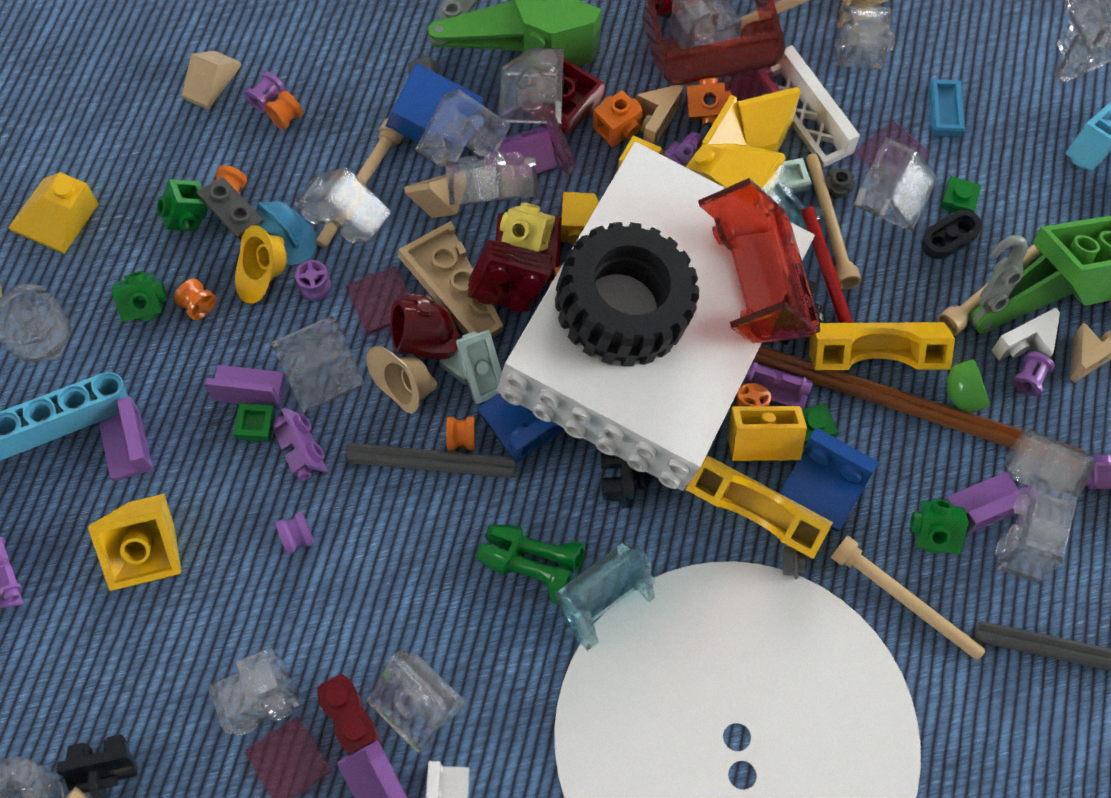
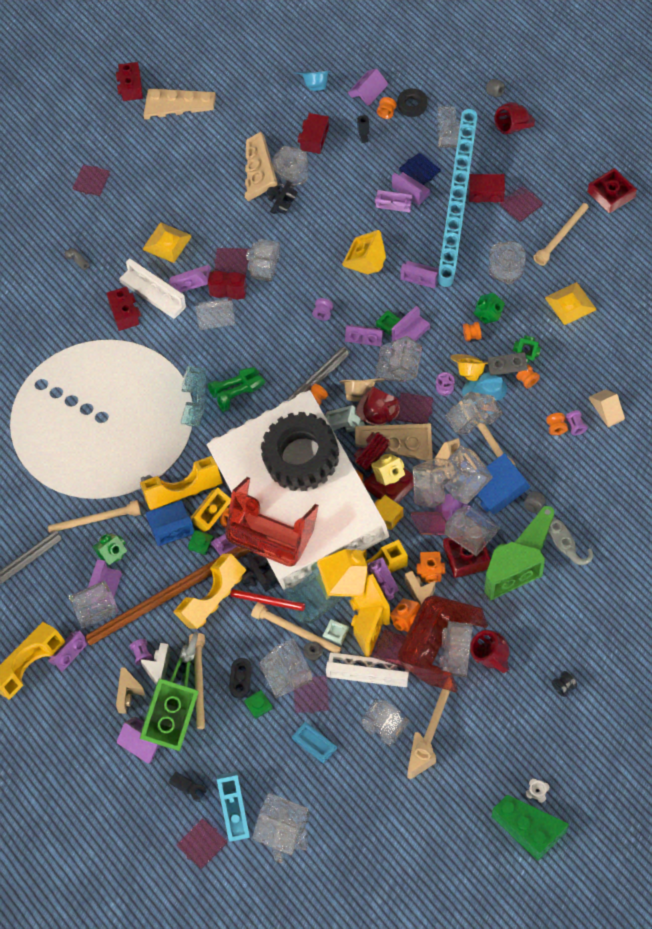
camera: 130 degrees right, 5 degrees down
(967, 387) = (158, 612): bright green hair -> none
(1040, 534) = (70, 574): clear brick -> none

